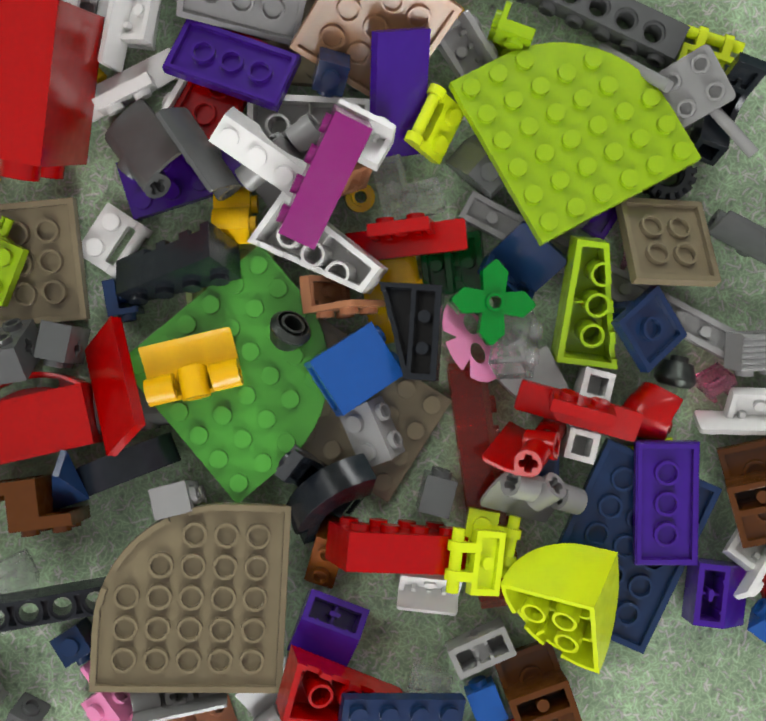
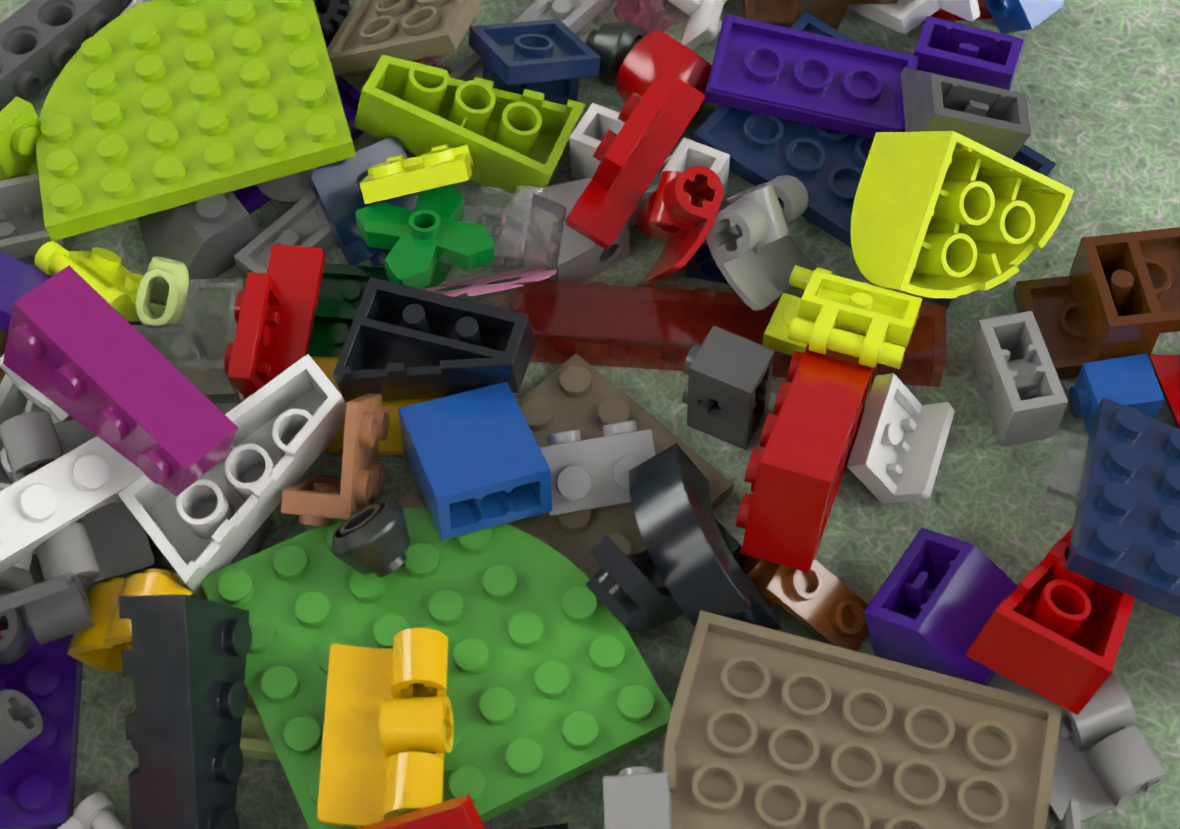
camera: 75 degrees left, 30 degrees down
(426, 164) = (162, 292): none -> yellowish green piece
(525, 287) = (416, 174): none -> neon yellow plate
(652, 599) = (975, 110): none -> dark grey slope

